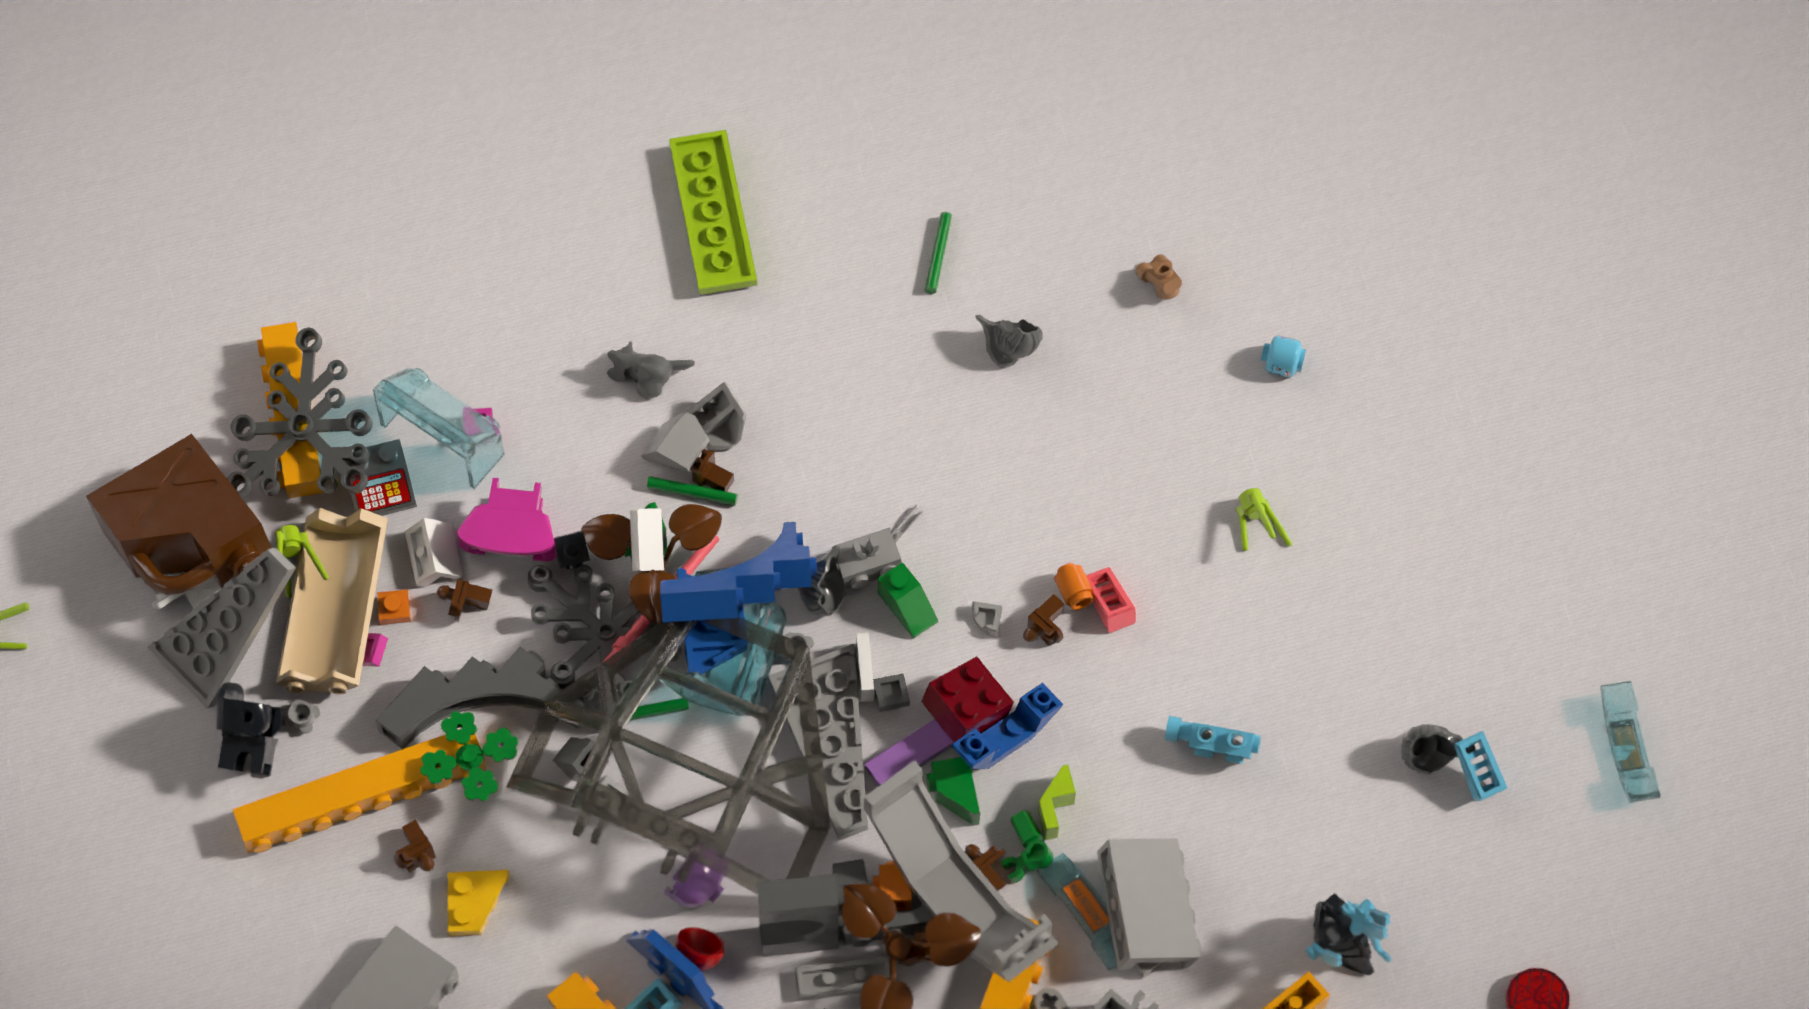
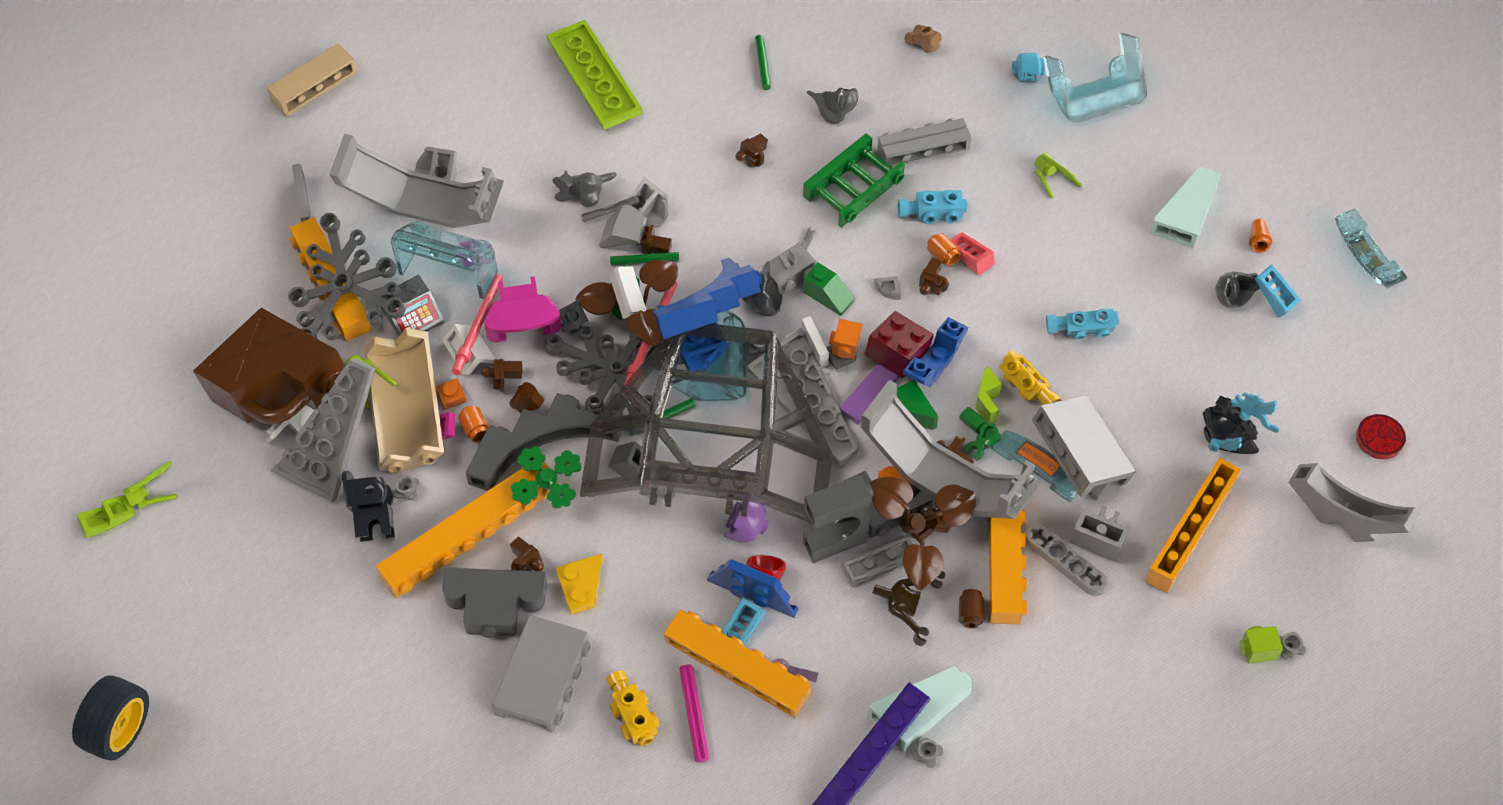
camera: 15 degrees left, 5 degrees down
(291, 283) = (301, 192): none -> light grey tile
(351, 122) = (312, 79): none -> tan brick
(361, 889) = (493, 597): none -> dark grey brick
(407, 655) = (473, 423): none -> orange brick
(421, 563) = (464, 353): none -> coral bar
(429, 317) = (413, 192): none -> light grey panel
(468, 296) = (438, 163): none -> light grey slope
(482, 641) = (526, 398): none -> reddish brown piece
(670, 410) = (609, 209): none -> light grey piece
(876, 378) = (752, 150): none -> reddish brown piece
(901, 677) = (846, 339): none -> orange brick
(993, 429) = (847, 161): none -> green fence
(1086, 522) = (934, 206): none -> medium azure brick
(1105, 428) = (924, 142): none -> light grey brick
(1113, 795) = (1027, 379): none -> yellow brick
(1366, 423) = (1120, 90): none -> clear light blue windscreen
(1413, 619) = (1186, 211): none -> light aqua slope
(1493, 683) = (1260, 236): none -> orange cone

